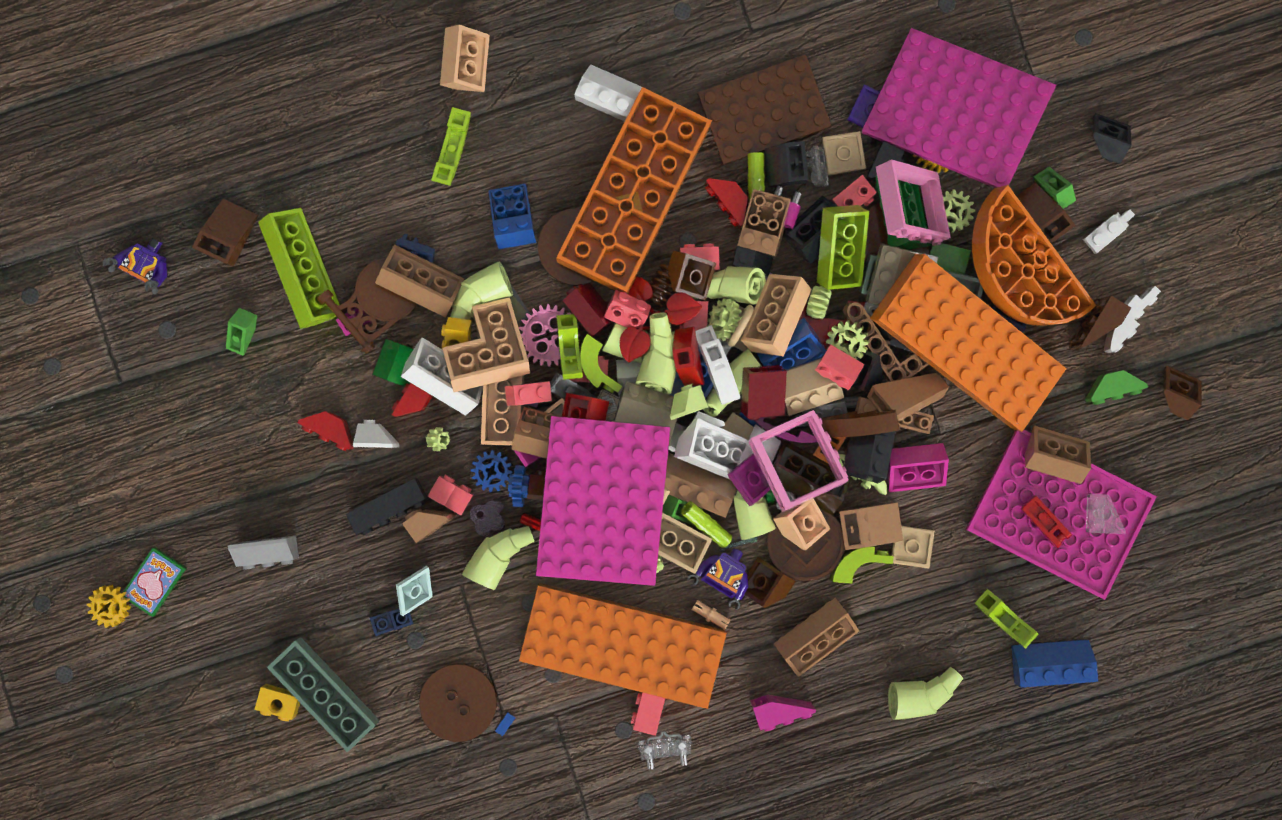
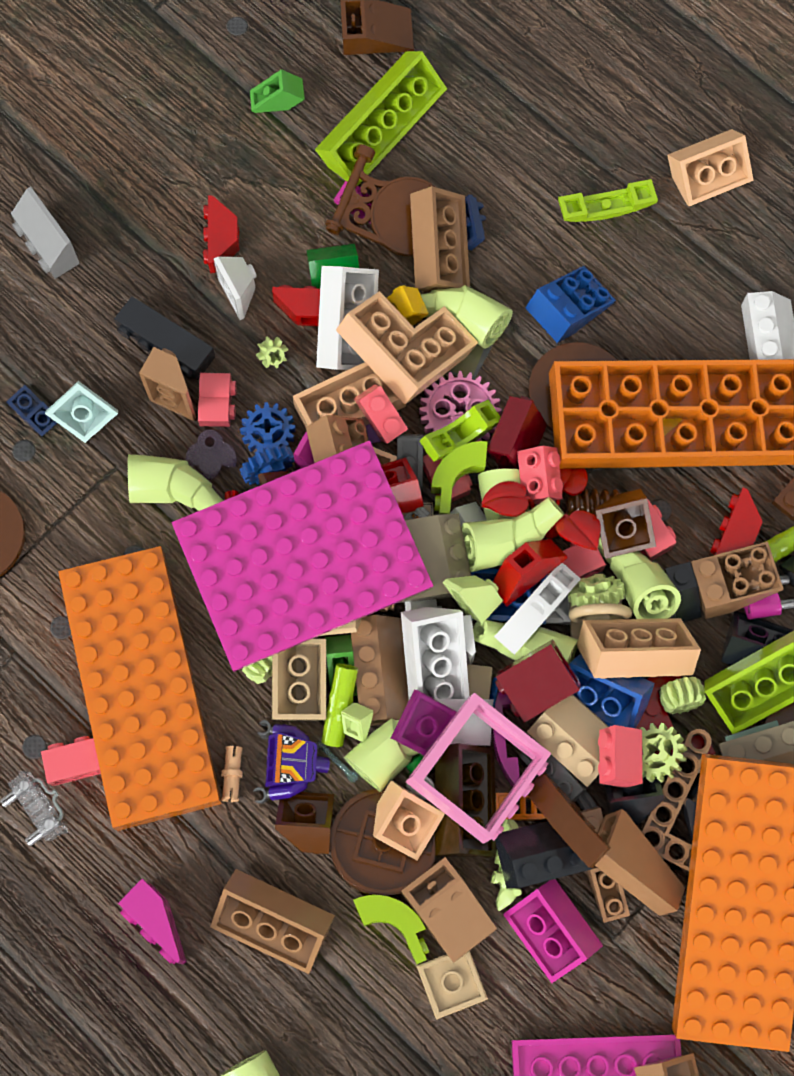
camera: 60 degrees right, 15 degrees down
(724, 520) = (357, 721): none -> yellowish green slope

